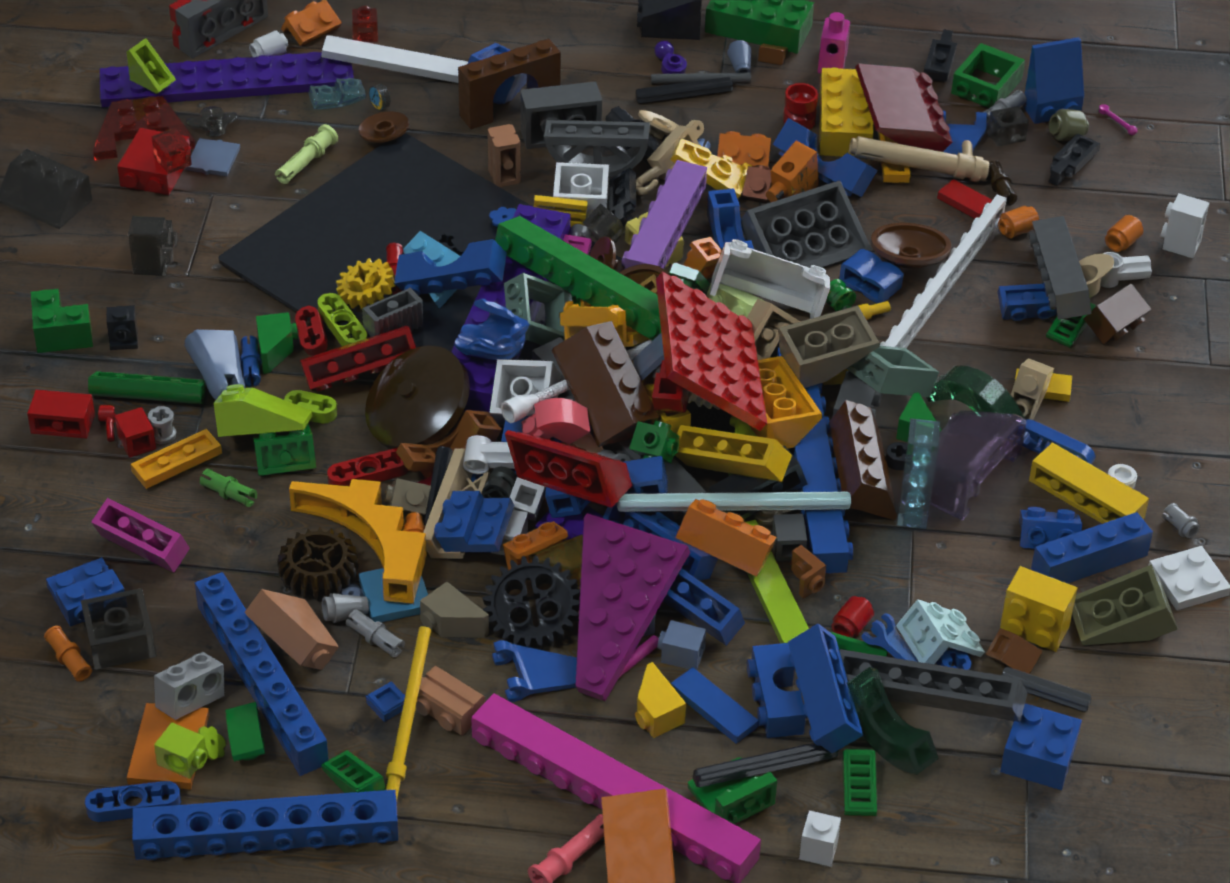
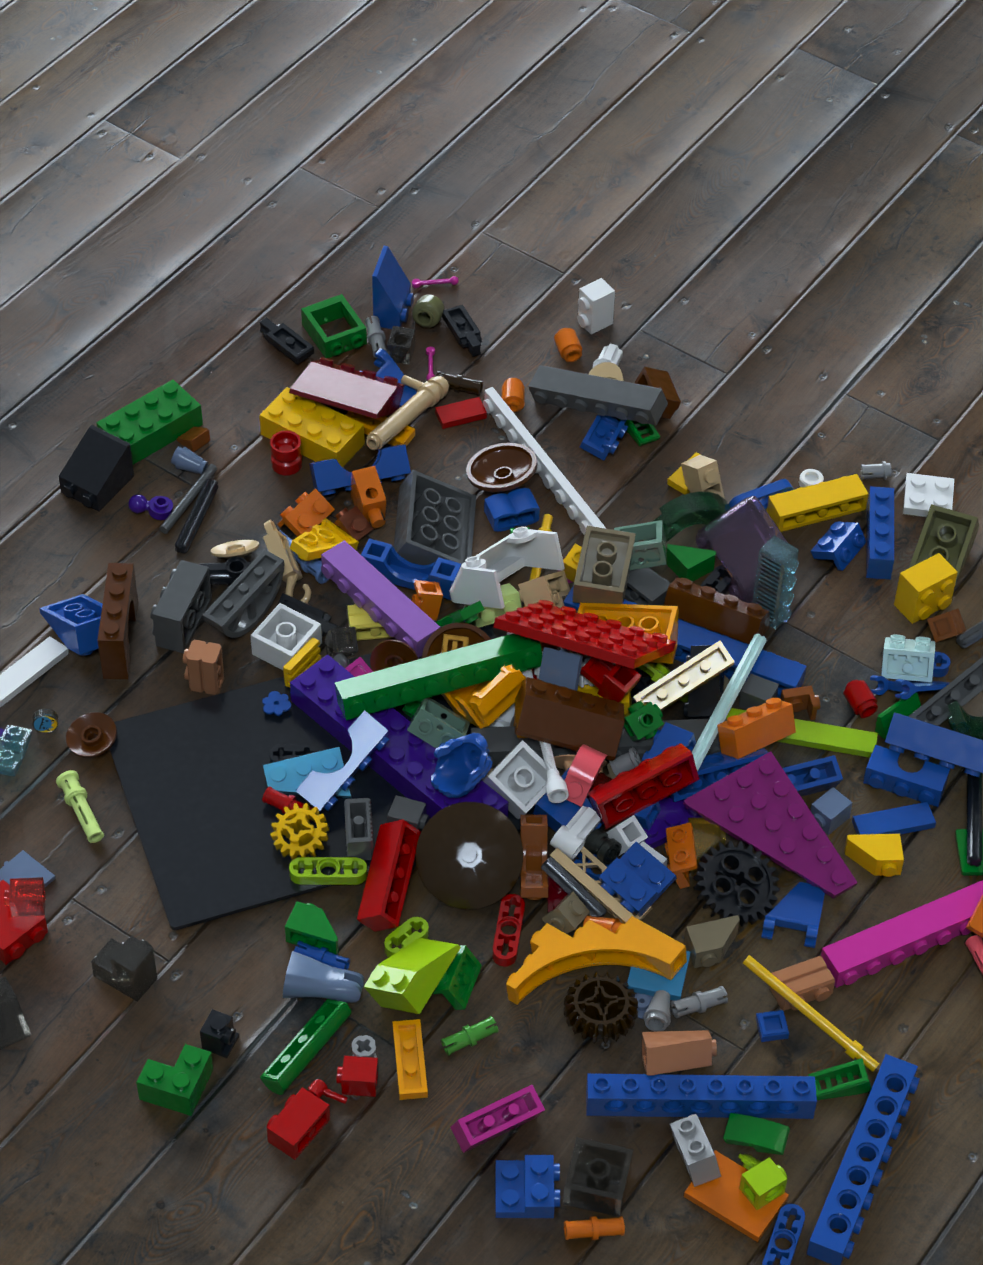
camera: 60 degrees left, 5 degrees up
(305, 332) = (319, 891): red beam -> none
(435, 335) = (410, 810): none -> dark grey brick
(835, 36) = (228, 395): dark pink torso -> none
(1026, 152) = (430, 351): none -> dark pink hinge

